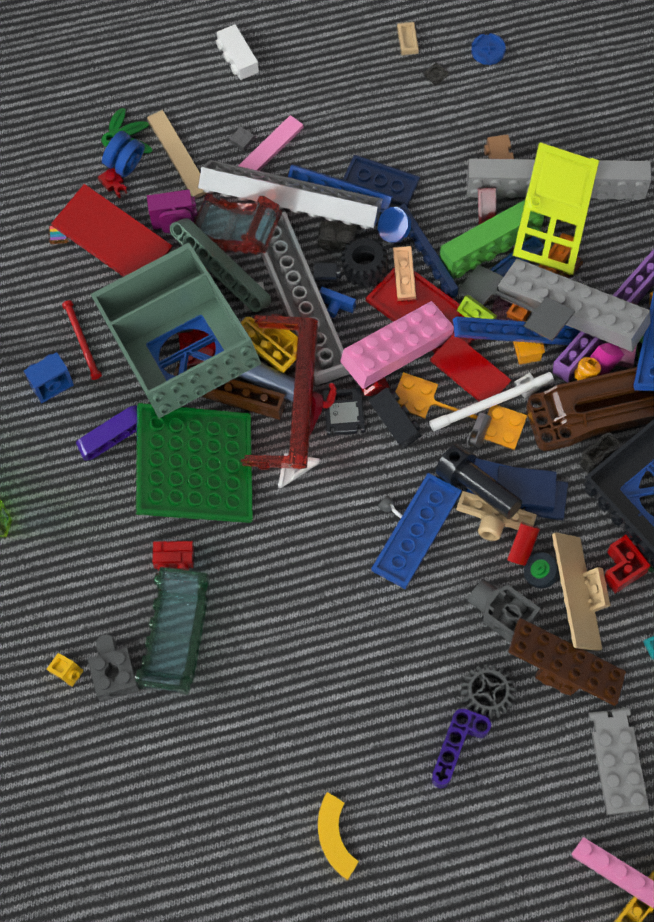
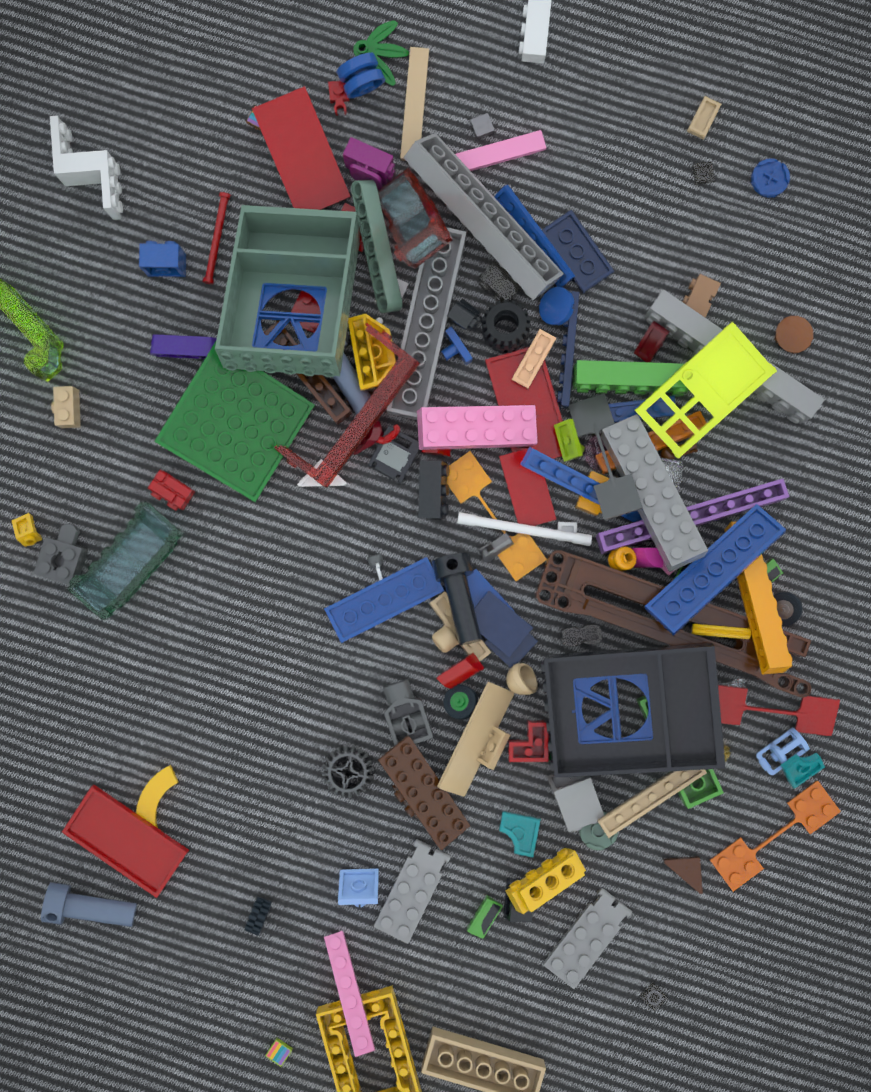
camera: 30 degrees right, 20 degrees up
(37, 544) = (66, 407): none -> tan brick
(332, 887) = (125, 841): none -> red tile
(455, 748) = (290, 799): dark purple beam -> none
(500, 870) = (258, 916): none -> black bush
(570, 783) = (358, 887): none -> light blue tile
(577, 520) = (522, 679): none -> tan hat
(590, 140) = (794, 334): none -> dark orange dish

